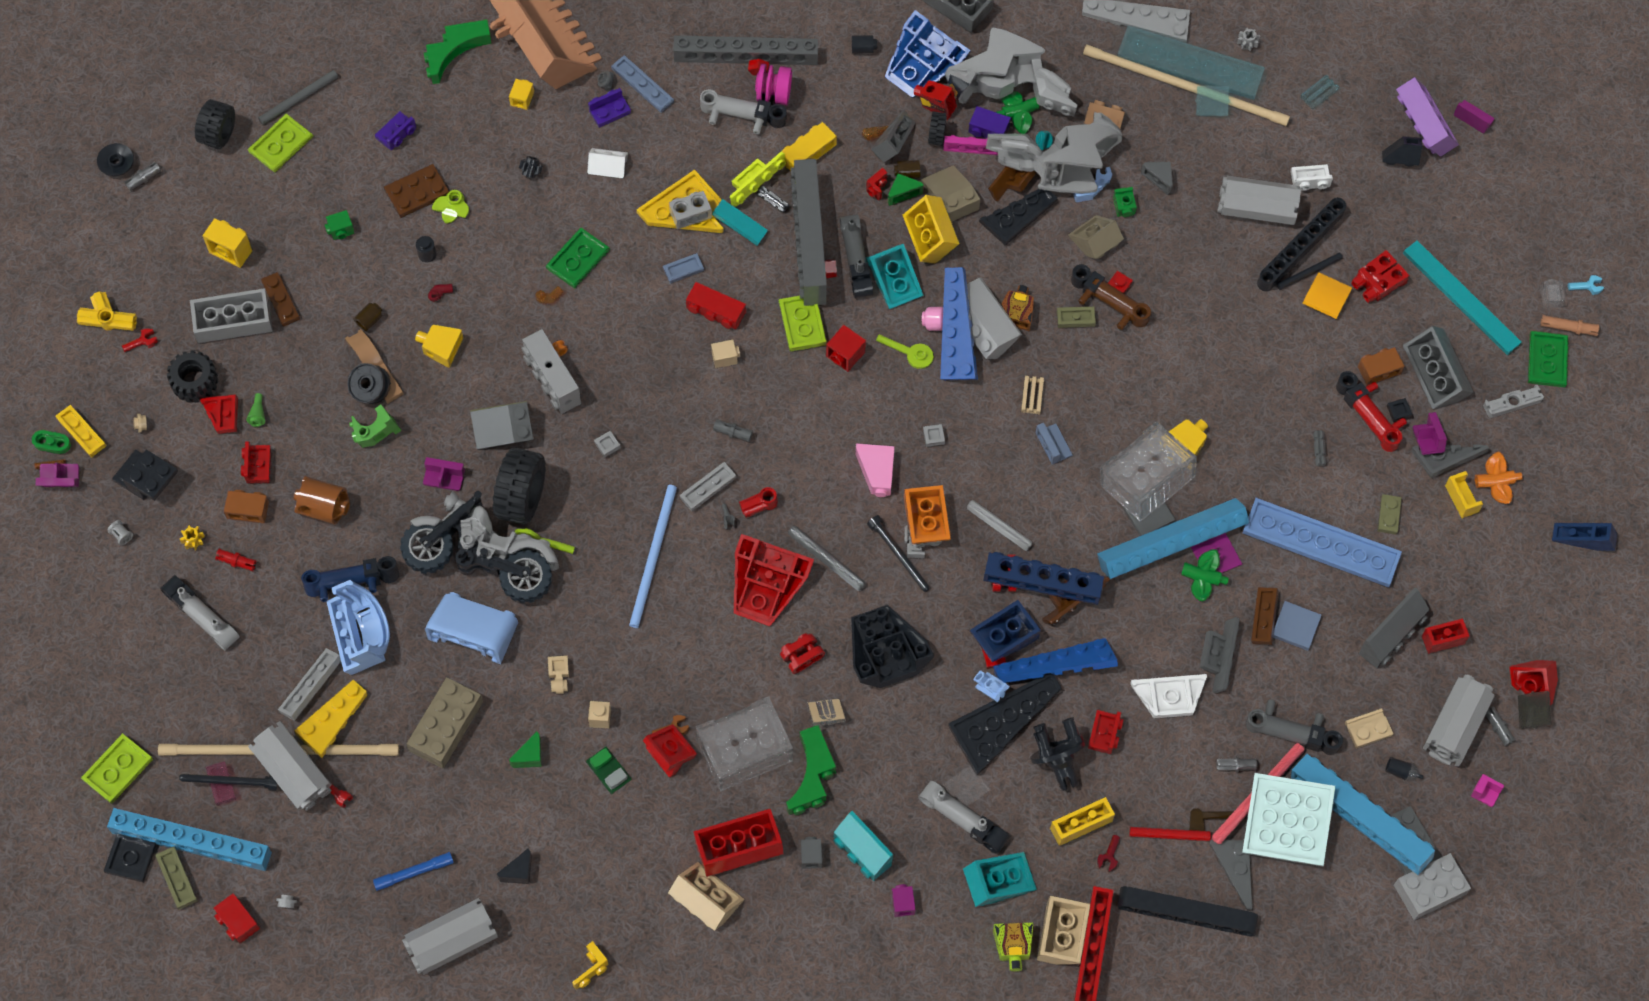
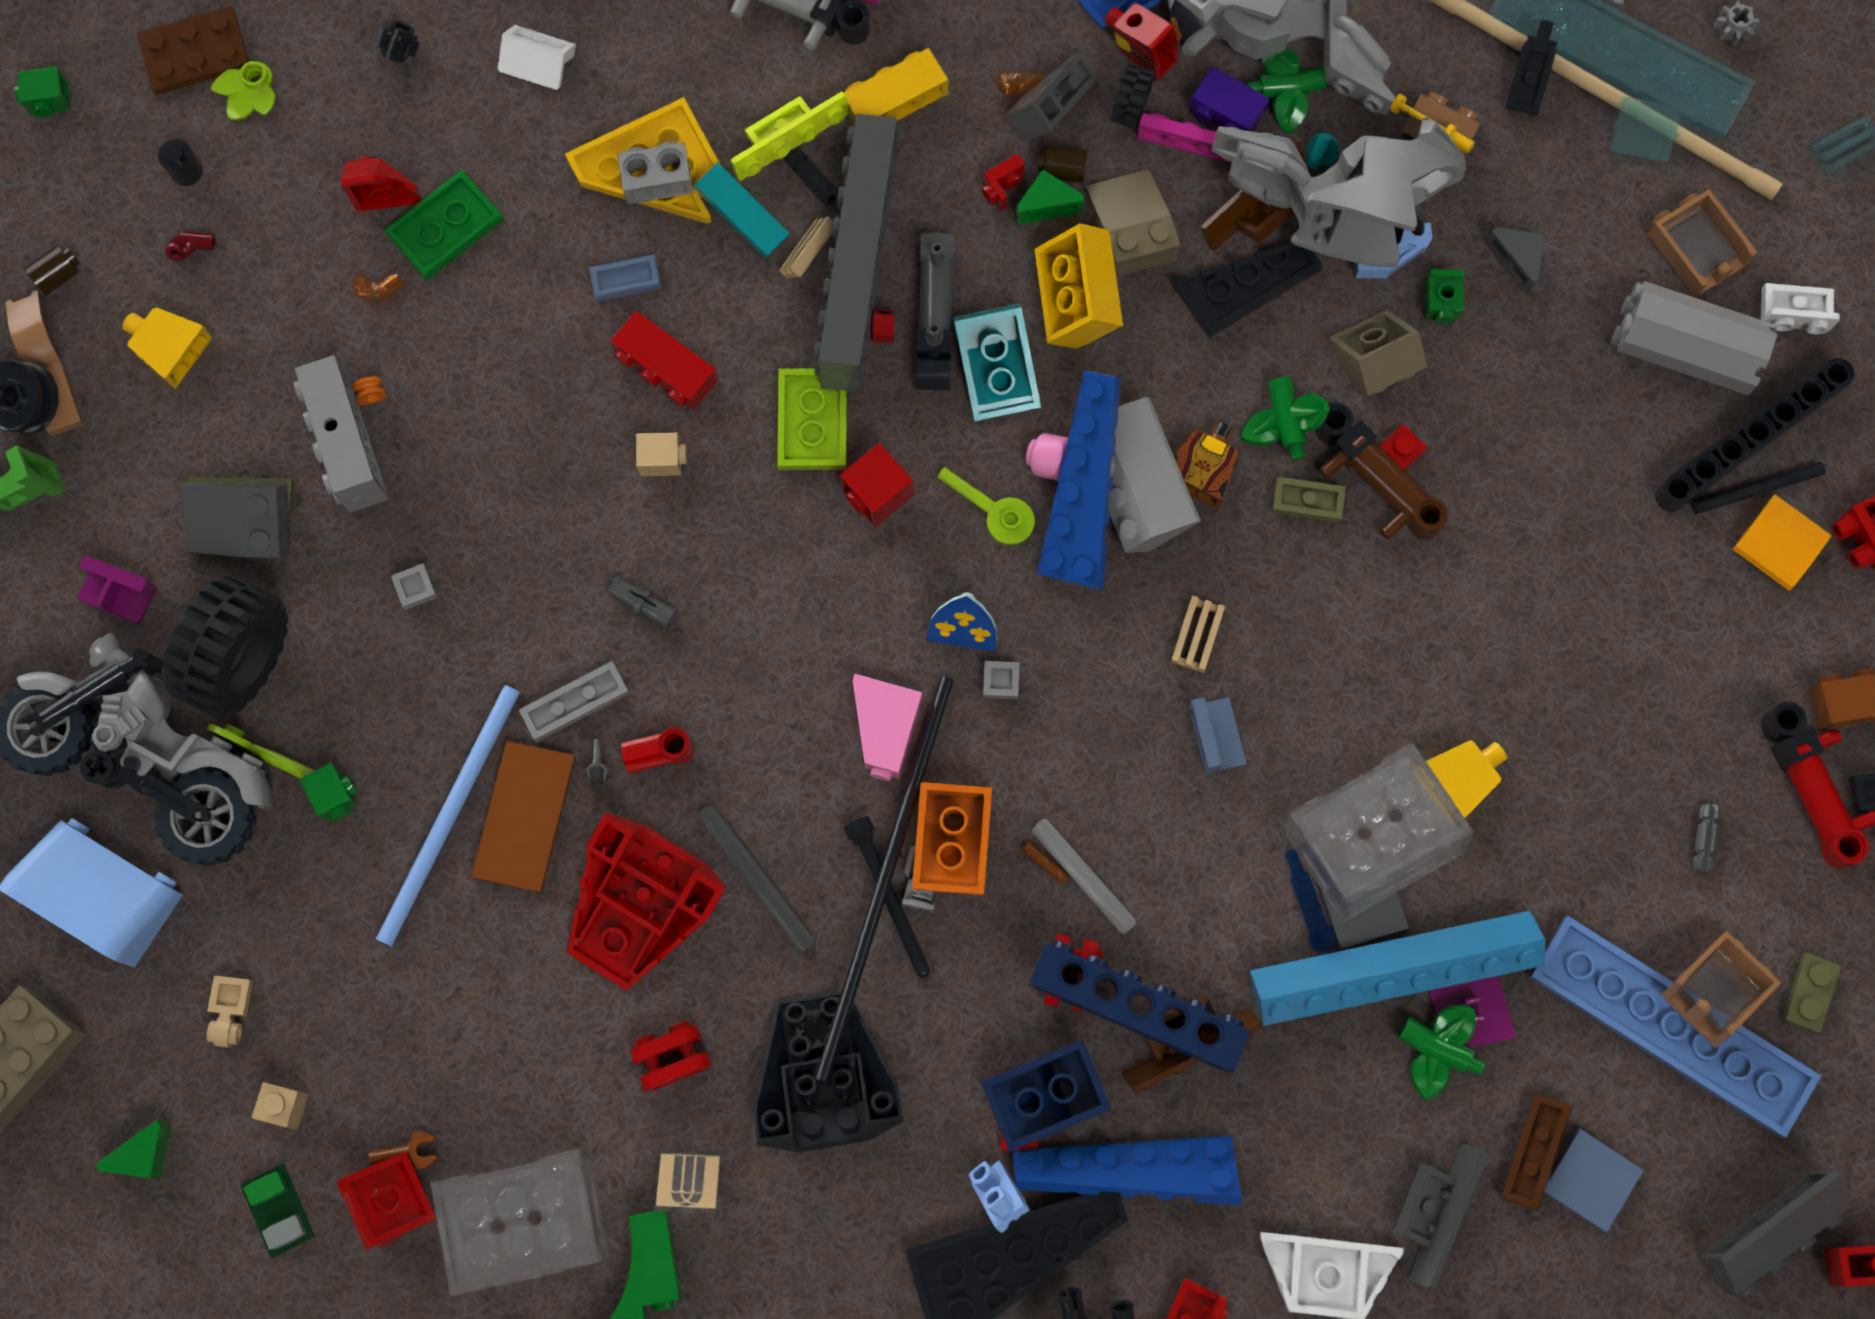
camera: 15 degrees right, 10 degrees up
(539, 242) = (377, 185): none -> red slope
(587, 555) = (330, 793): none -> green brick
(694, 550) = (524, 817): none -> dark orange tile
(779, 235) = (807, 248): none -> tan tile
(895, 543) = (883, 881): none -> black piece
(908, 409) = (963, 623): none -> blue shield
(978, 523) = (1044, 862): none -> dark orange piece
(1055, 278) = (1286, 418): none -> green plant
(1119, 123) = (1461, 141): none -> yellow piece
(1129, 529) = (1320, 935): none -> clear blue piece
(1146, 81) = (1533, 71): none -> black hinge
(1253, 152) = (1701, 242): none -> medium nougat window
(1340, 517) = (1721, 989): none -> window

